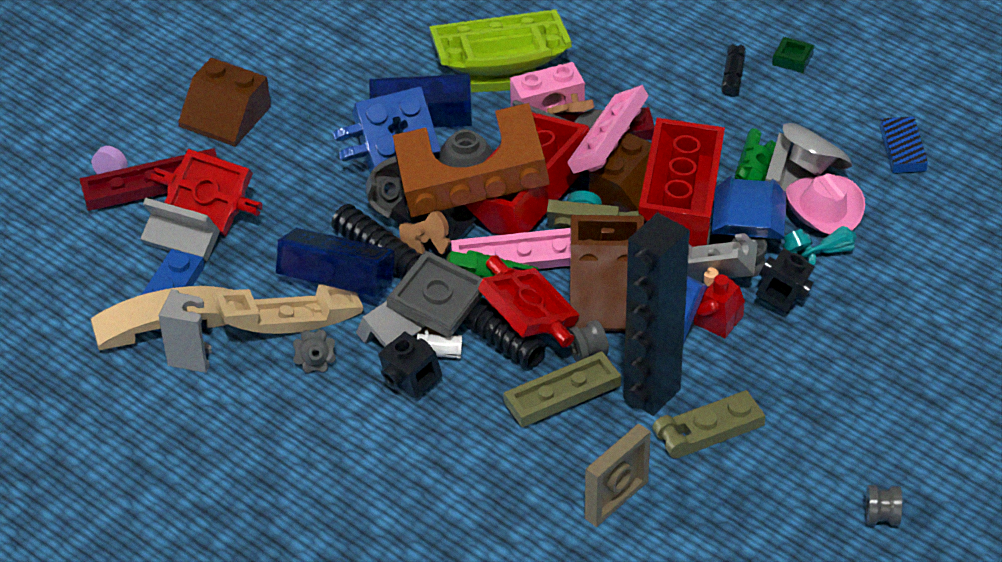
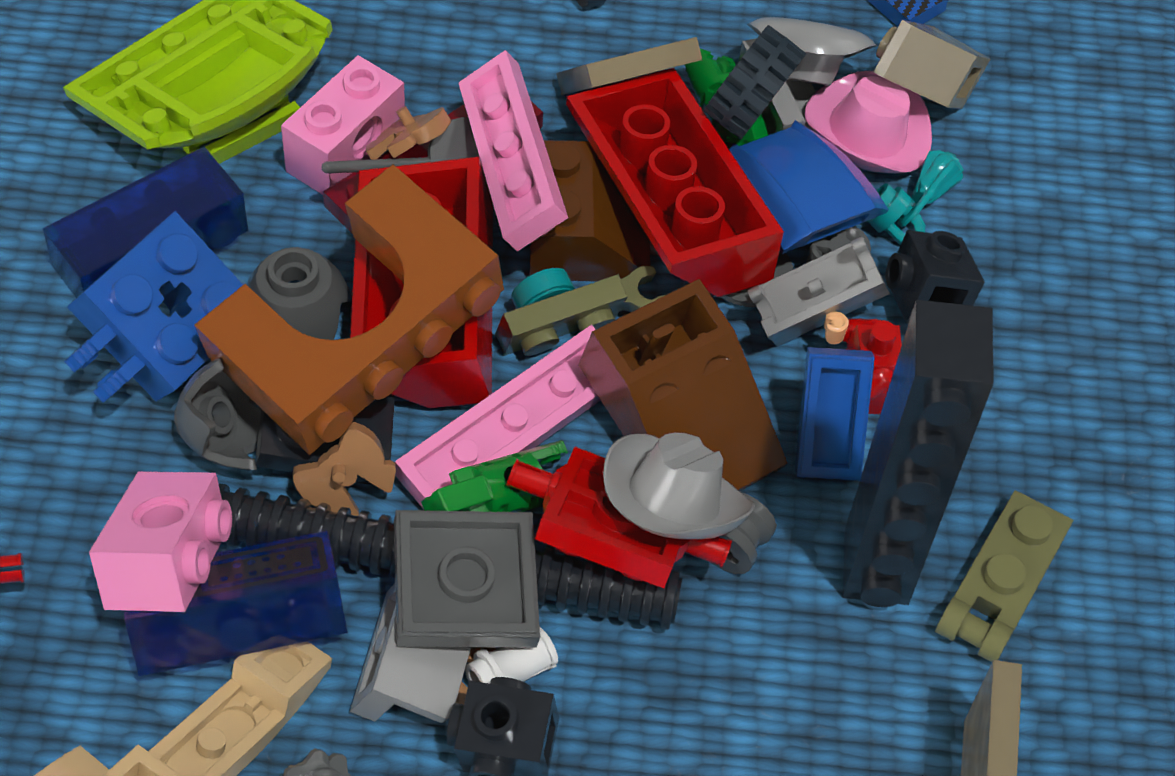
camera: 40 degrees left, 10 degrees up
(316, 216) = (160, 541): none -> bright pink brick
(558, 296) = (673, 487): none -> light grey hat
(562, 389) = (759, 639): olive plate -> none
(733, 122) = (629, 66): none -> dark tan tile
(753, 145) = (754, 81): none -> black wheel
(874, 182) = (930, 63): none -> dark tan slope

